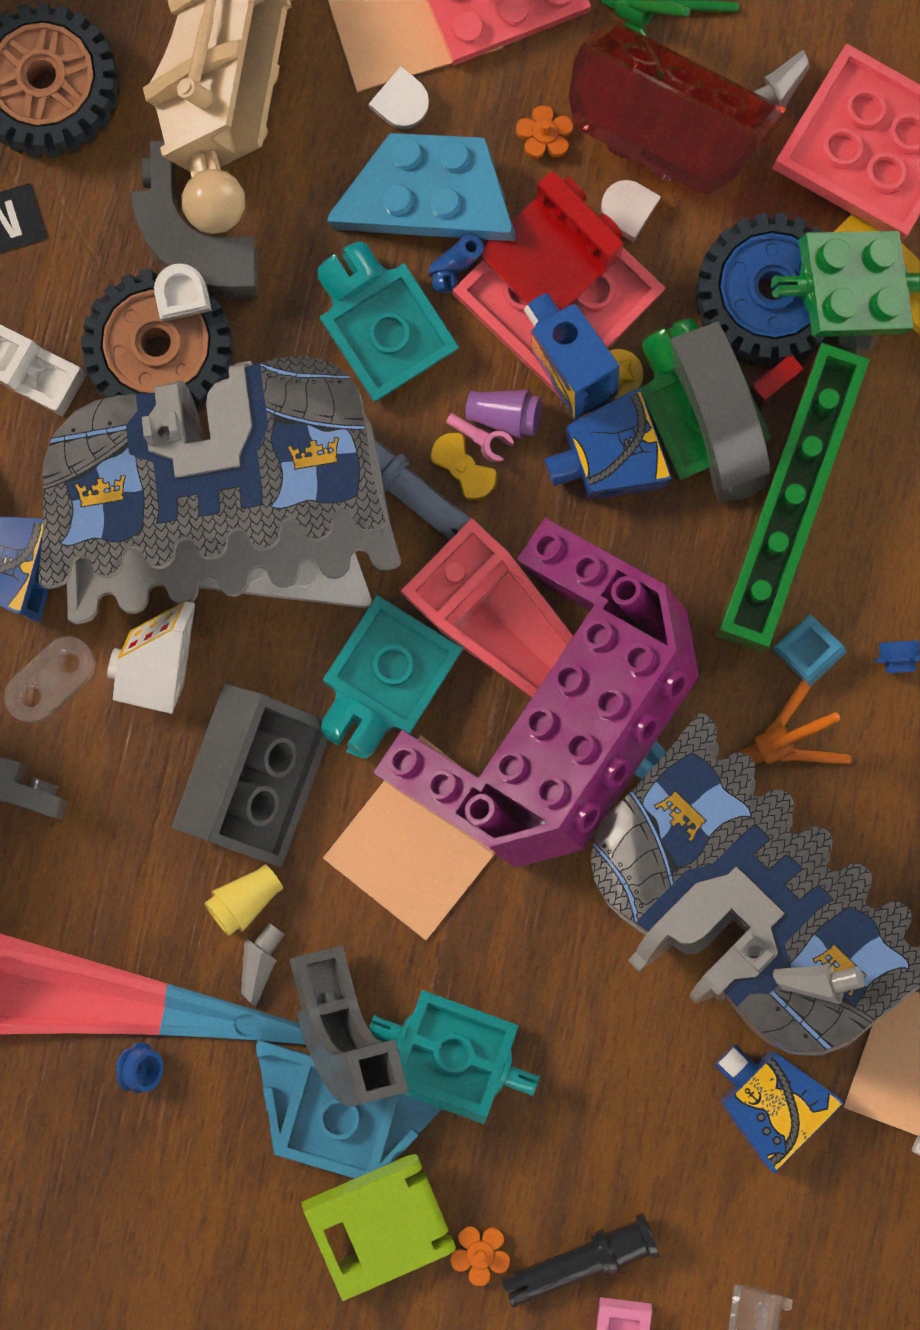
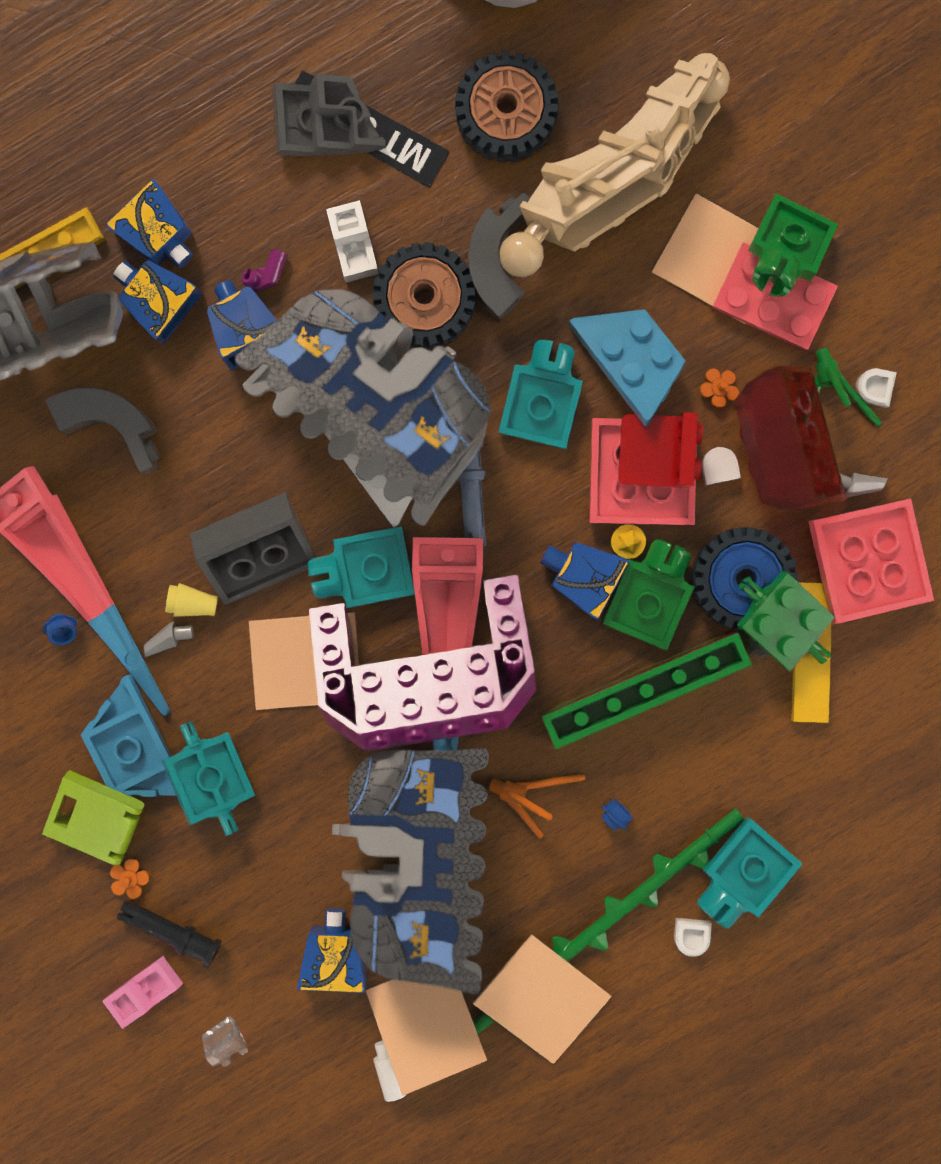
camera: 45 degrees right, 5 degrees up
(49, 678) = (209, 403): clear plate -> none
(154, 660) = (263, 446): white slope -> none
(180, 292) = (459, 282): white tile -> none
(337, 1038) = (158, 727): dark grey arch -> none
(401, 101) = (667, 299): white tile -> none
(454, 262) = (608, 404): blue arm -> none
(475, 480) = (507, 519): yellow piece -> none
(480, 436) = (531, 500): bright pink hand -> none
(506, 411) = (556, 503): medium lavender cone -> none
(572, 355) = (610, 525): blue torso -> none
(723, 412) = (655, 614): dark grey arch -> none
(776, 381) = (698, 625): red tile -> none
(809, 650) = (577, 767): dark azure tile -> none
(820, 981) = (401, 937): light grey bar -> none

